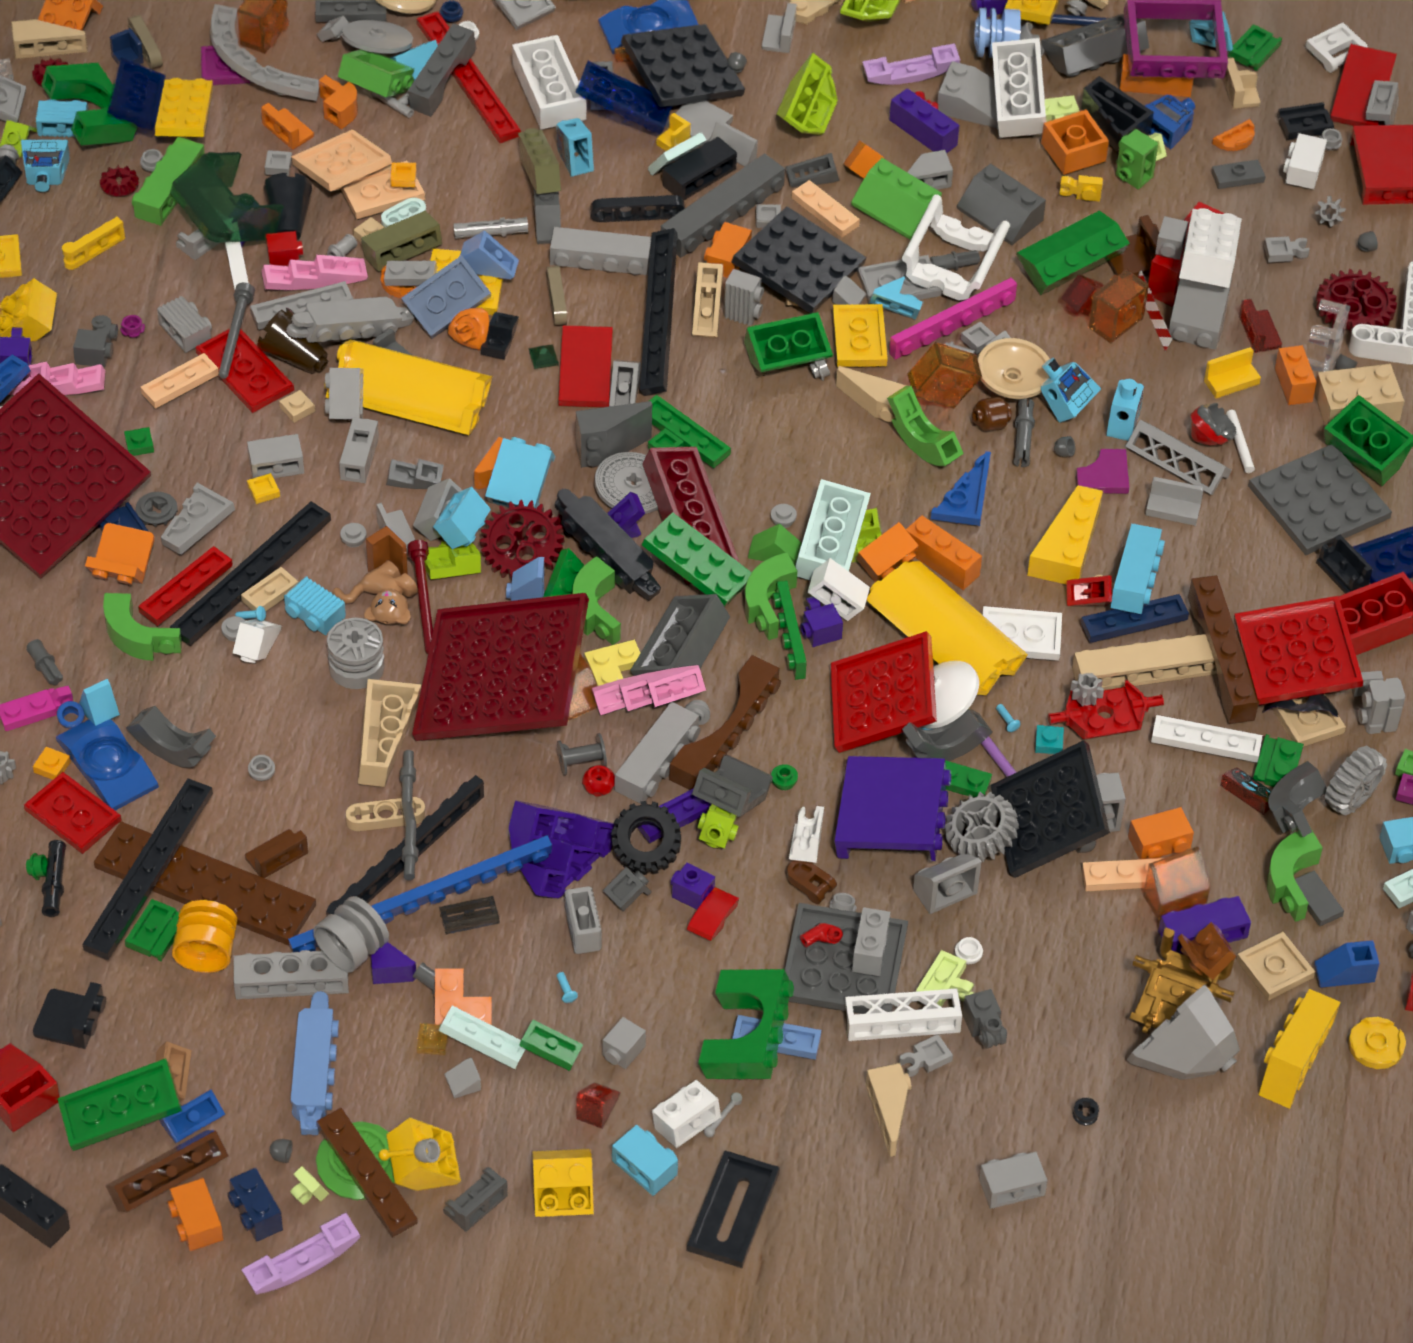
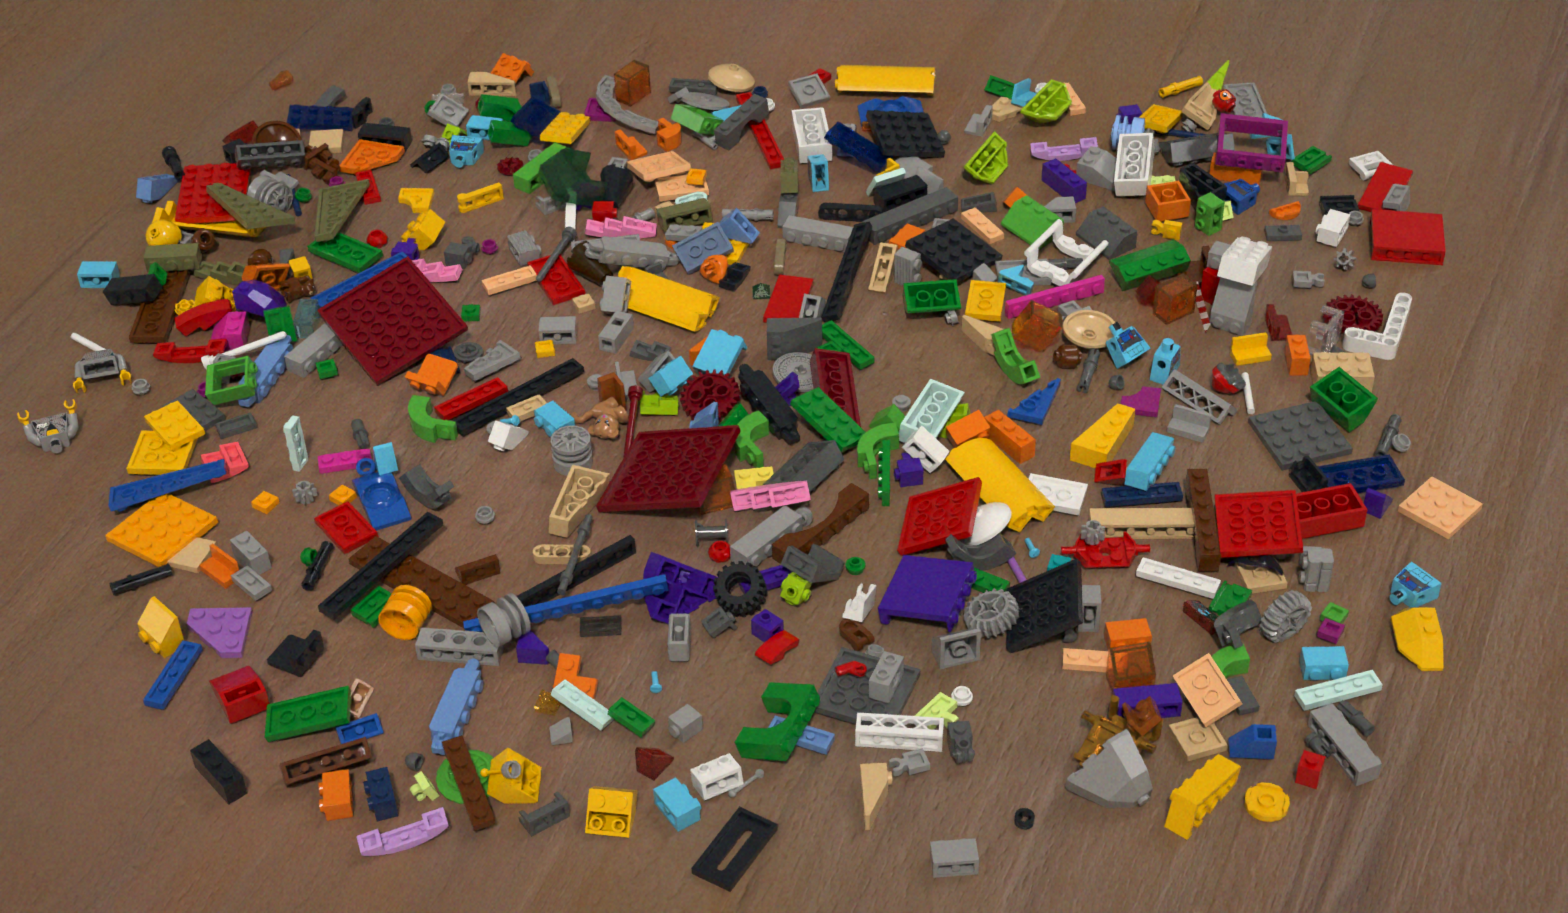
camera: 15 degrees right, 10 degrees down
(1279, 901) = (1207, 690): none -> light nougat plate

